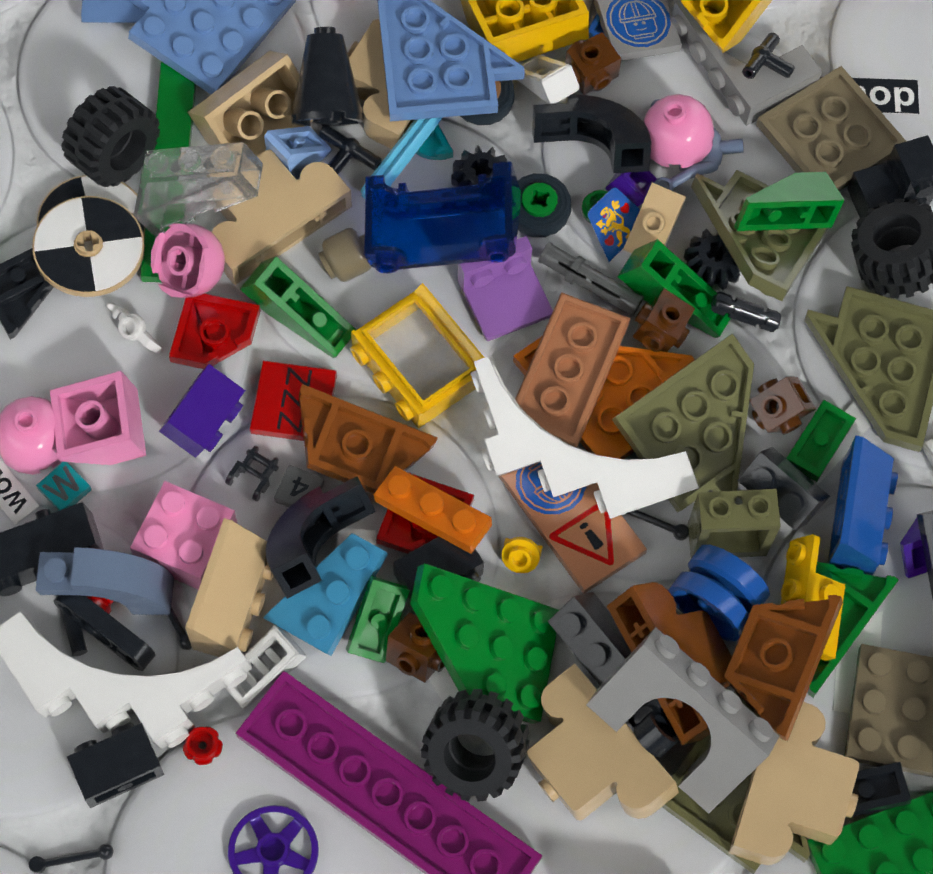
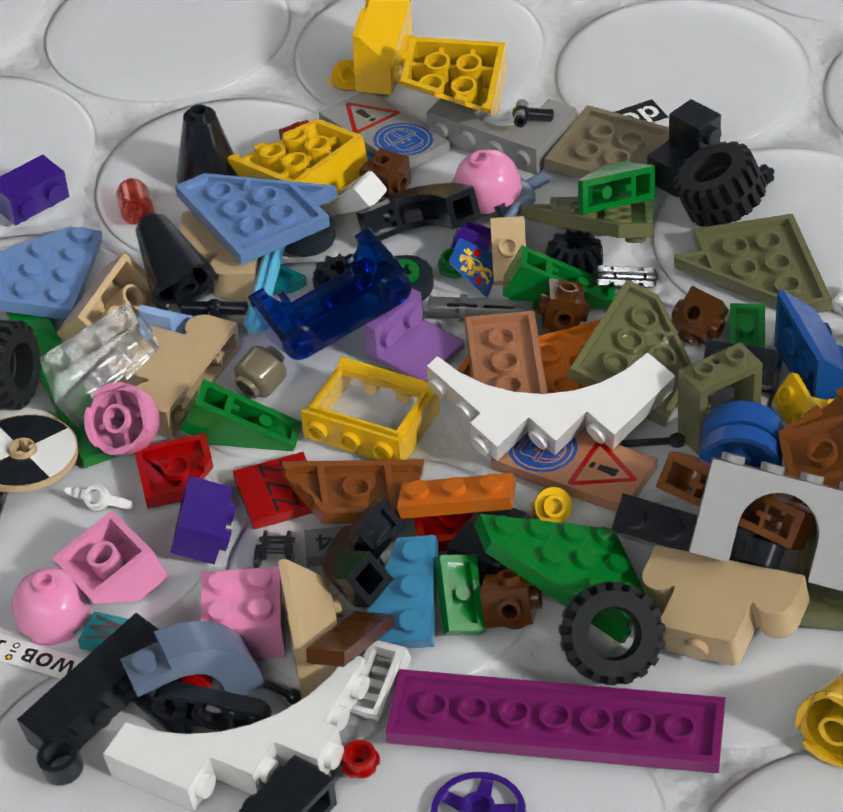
camera: 20 degrees left, 25 degrees down
(246, 631) = (349, 638): none -> reddish brown tile

